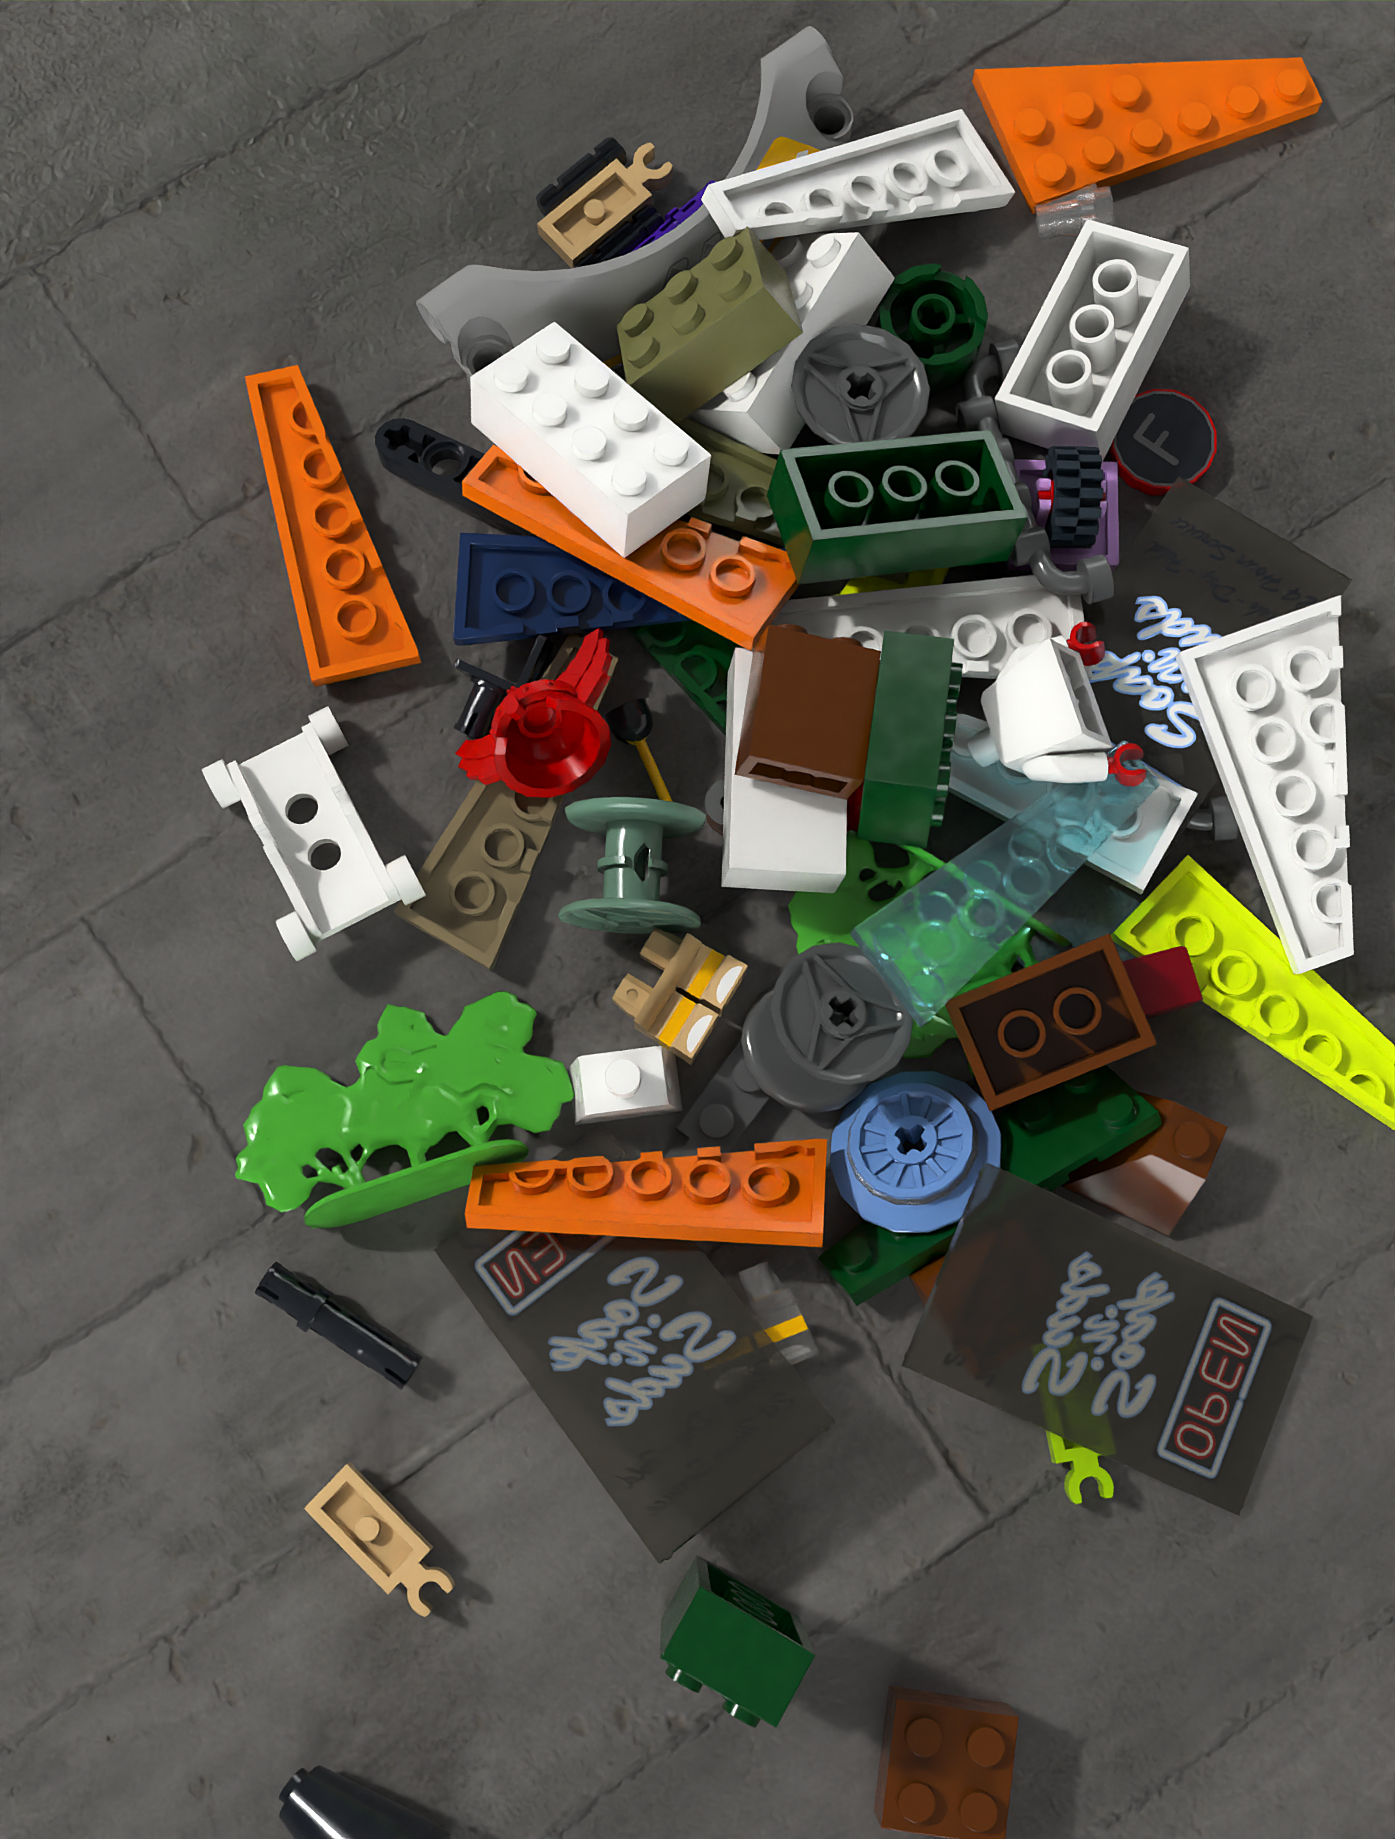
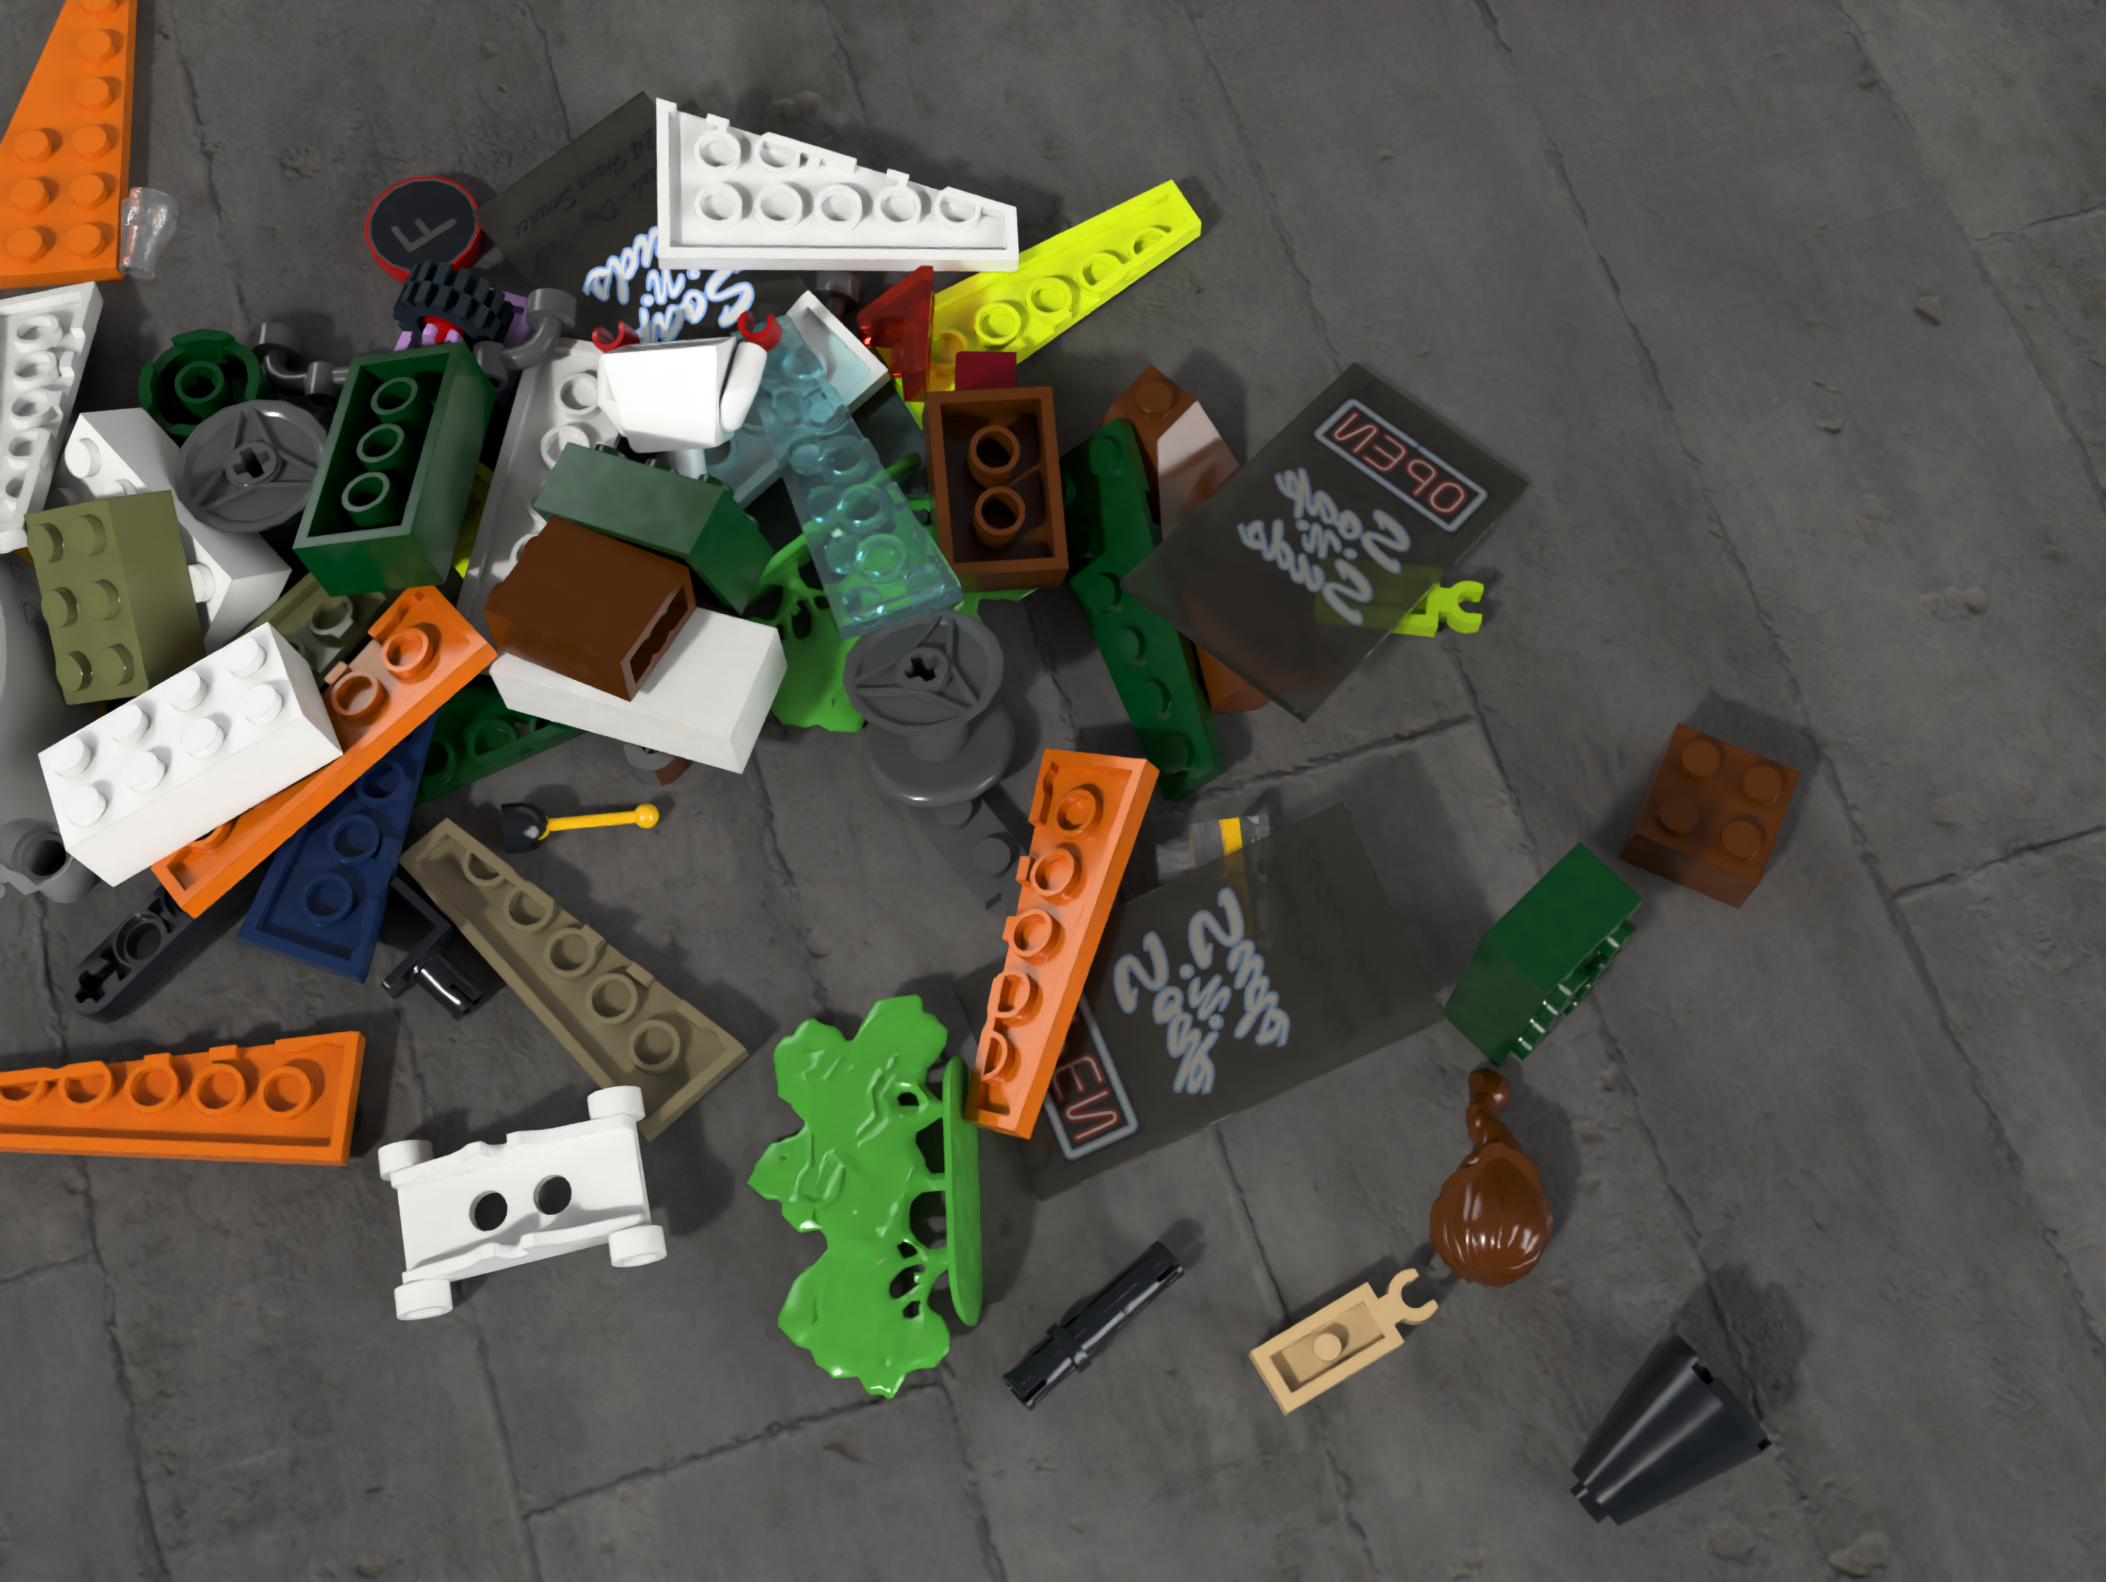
camera: 70 degrees left, 10 degrees down
(519, 1647) = (1493, 1207): none -> reddish brown hair
(547, 731) = (503, 898): red helmet -> none
(624, 1085) = (923, 937): white torso -> none
(633, 840) = (649, 842): sand green piece -> none
(688, 970) = (848, 849): tan hips -> none
(916, 1188) = (1124, 658): medium blue piece -> none
(1094, 339) = (290, 247): white brick -> none
(1201, 889) = (904, 323): none -> clear red slope

